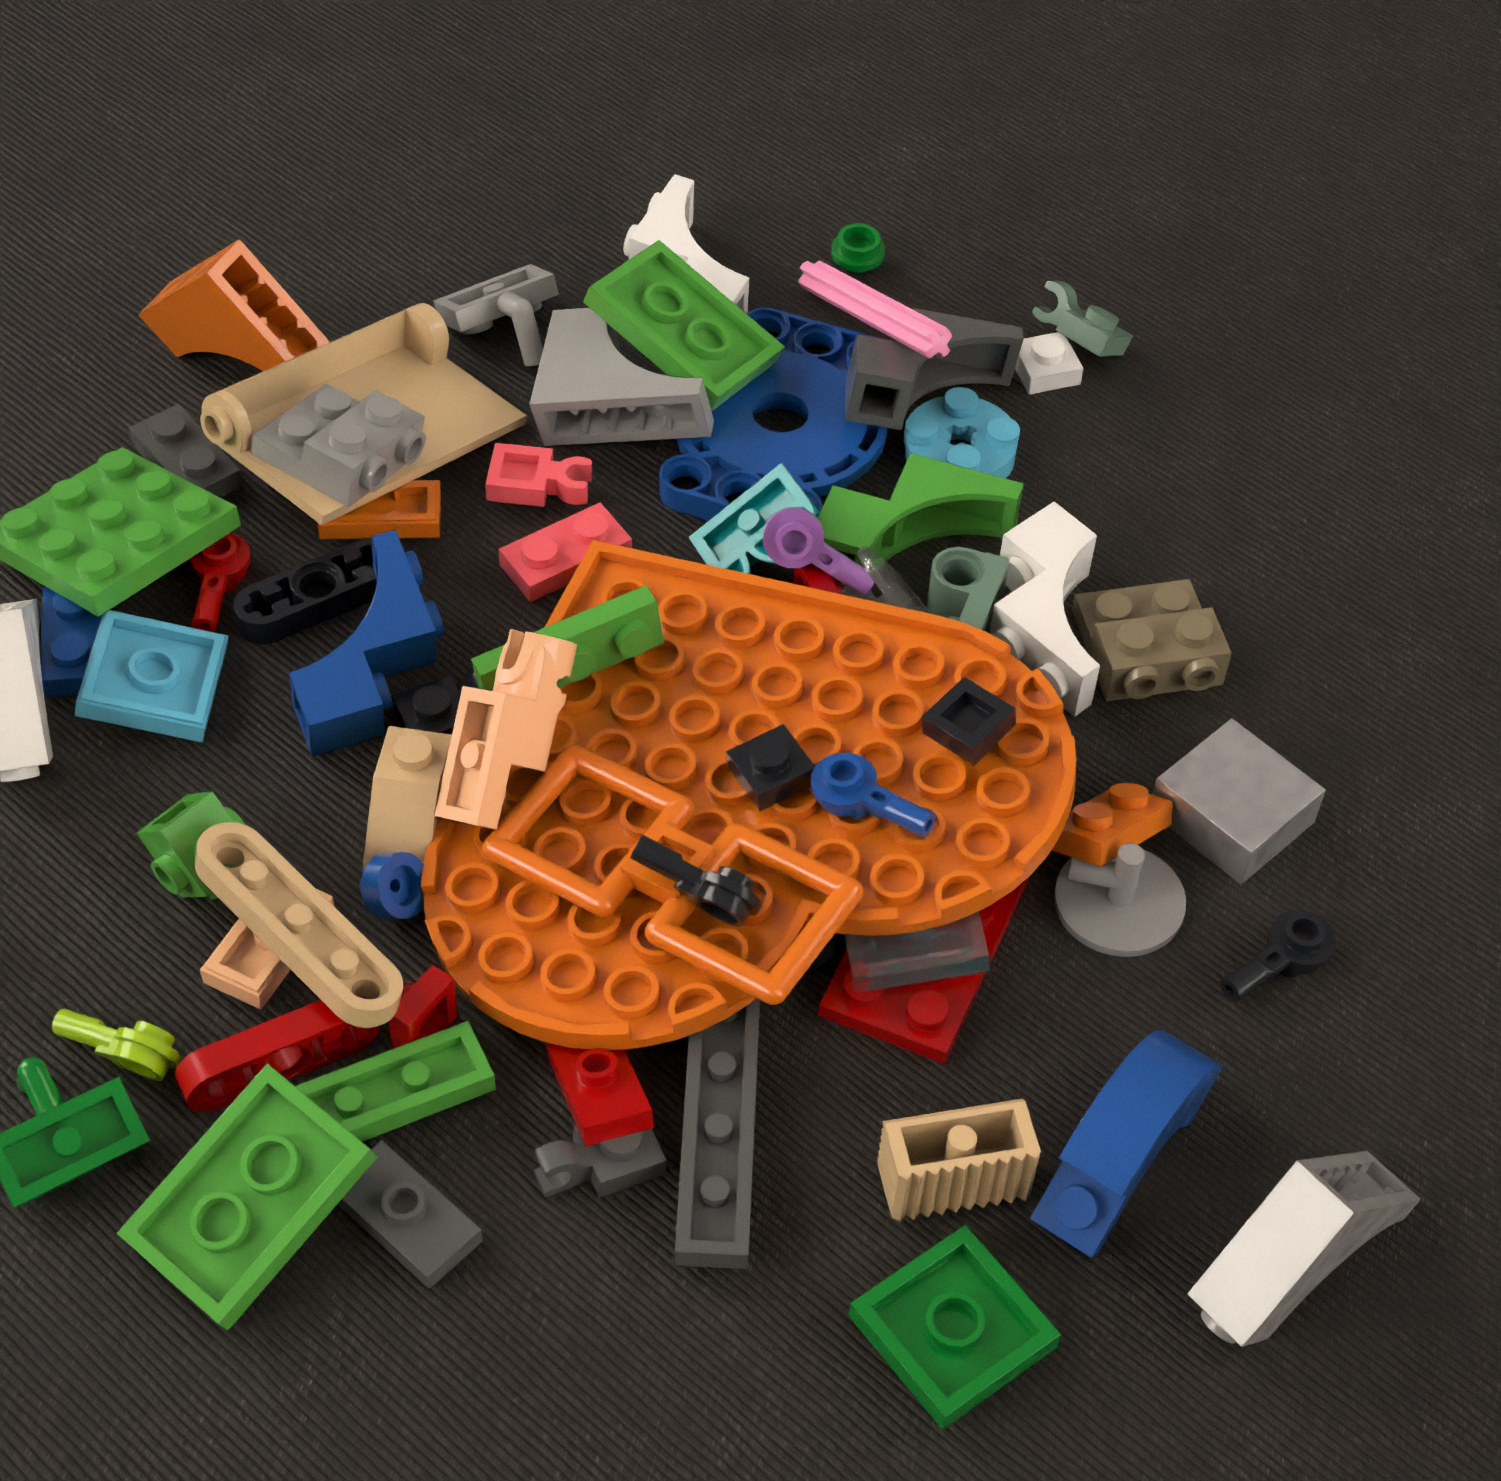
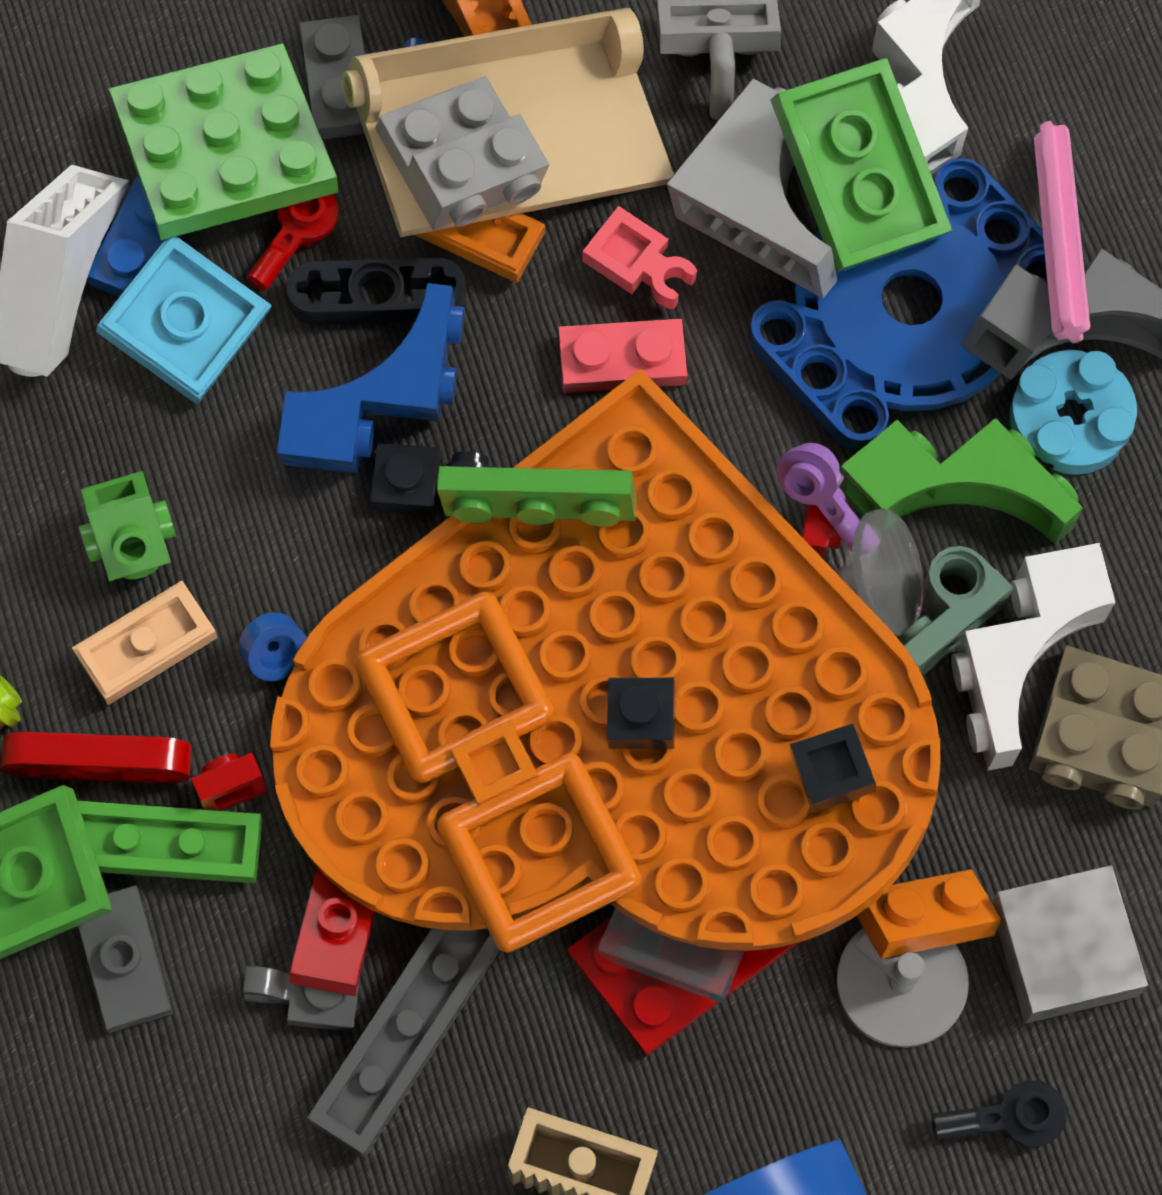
camera: 30 degrees right, 20 degrees up
(299, 924) = (155, 661): tan plate -> none
(405, 792) = (329, 564): tan slope -> none
(504, 727) = (429, 555): light nougat plate -> none
(722, 894) = (515, 825): black plate -> none
(736, 533) = (784, 420): plate -> none
(848, 787) = (690, 772): blue plate -> none
(858, 248) = (1117, 126): green plate -> none

